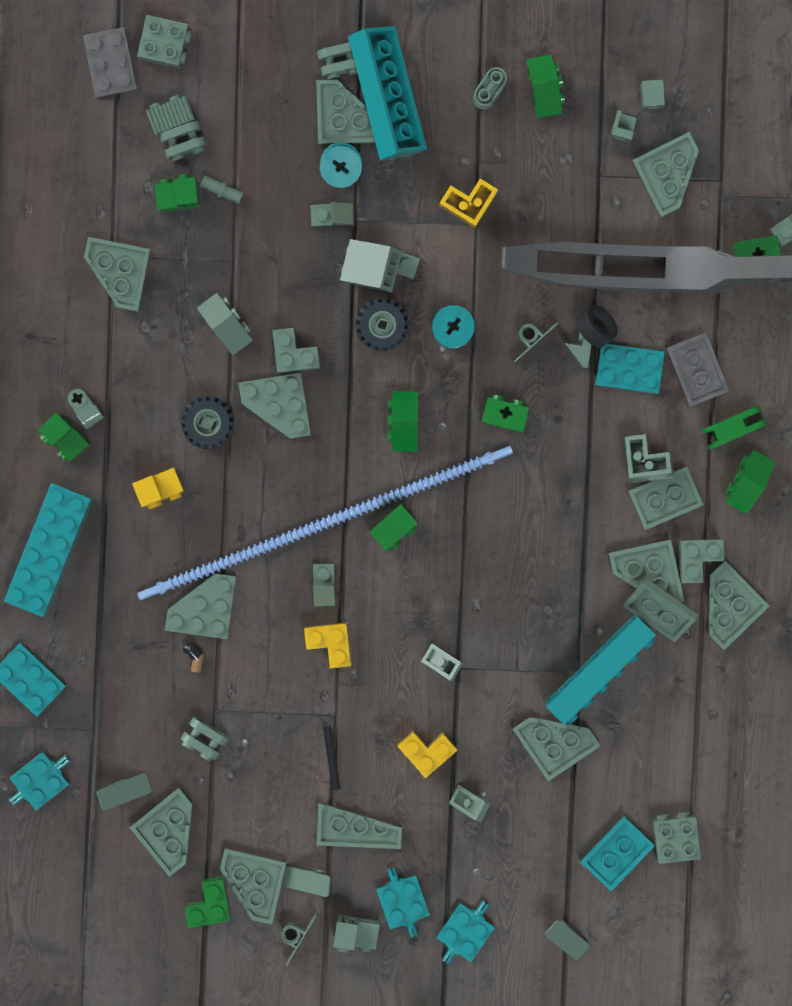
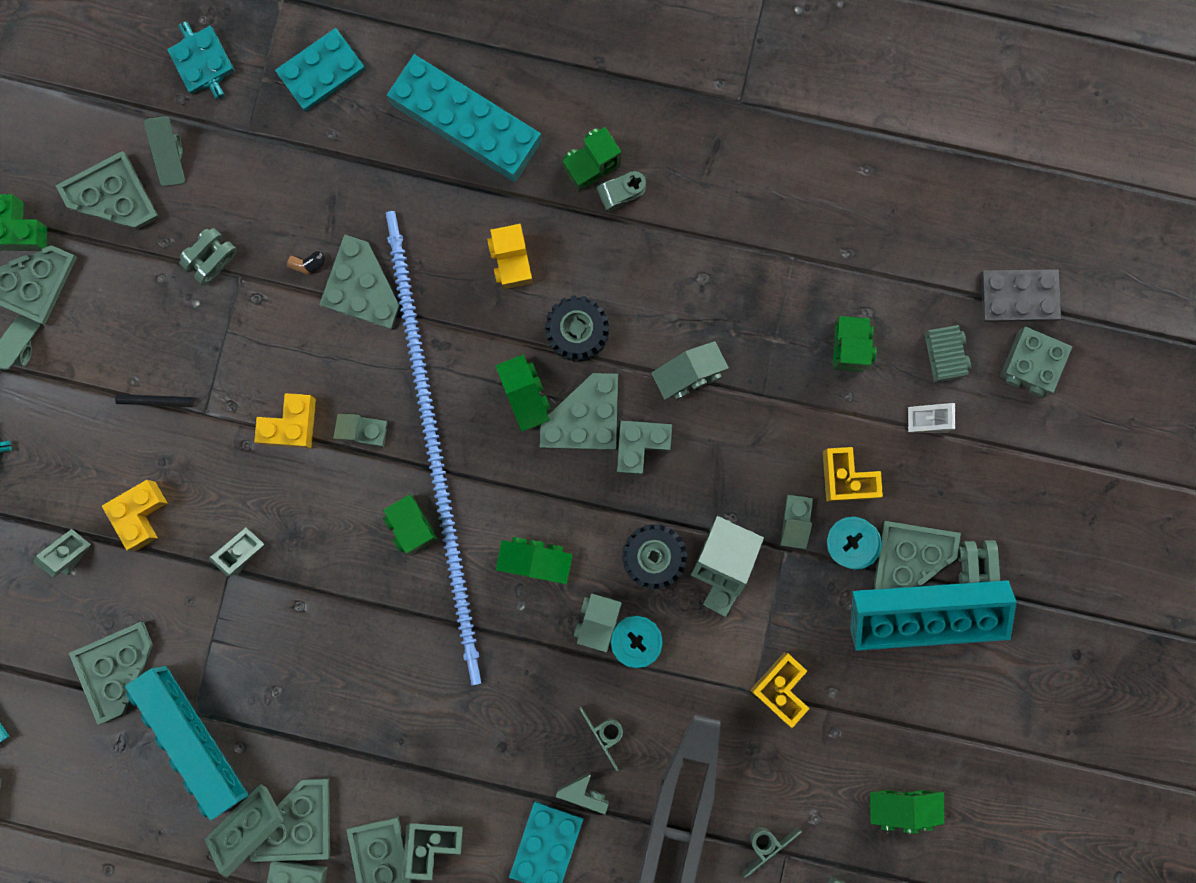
camera: 100 degrees right, 5 degrees down
(119, 269) = (775, 260): sand green plate -> none
(177, 151) = (904, 354): sand green brick -> none
(221, 189) = (849, 397): sand green pin -> none
(227, 119) = (931, 418): none -> white slope
(268, 456) = (523, 390): none -> green brick
(292, 183) = (843, 482): none -> yellow brick
(351, 829) = (64, 406): sand green wing -> none
(443, 360) = (598, 622): none -> sand green brick
(490, 88) = (915, 740): sand green brick -> none
(514, 422) = (508, 696): green brick -> none
(596, 188) = (770, 849): none -> sand green piece
(604, 321) = (601, 807): black tyre -> none

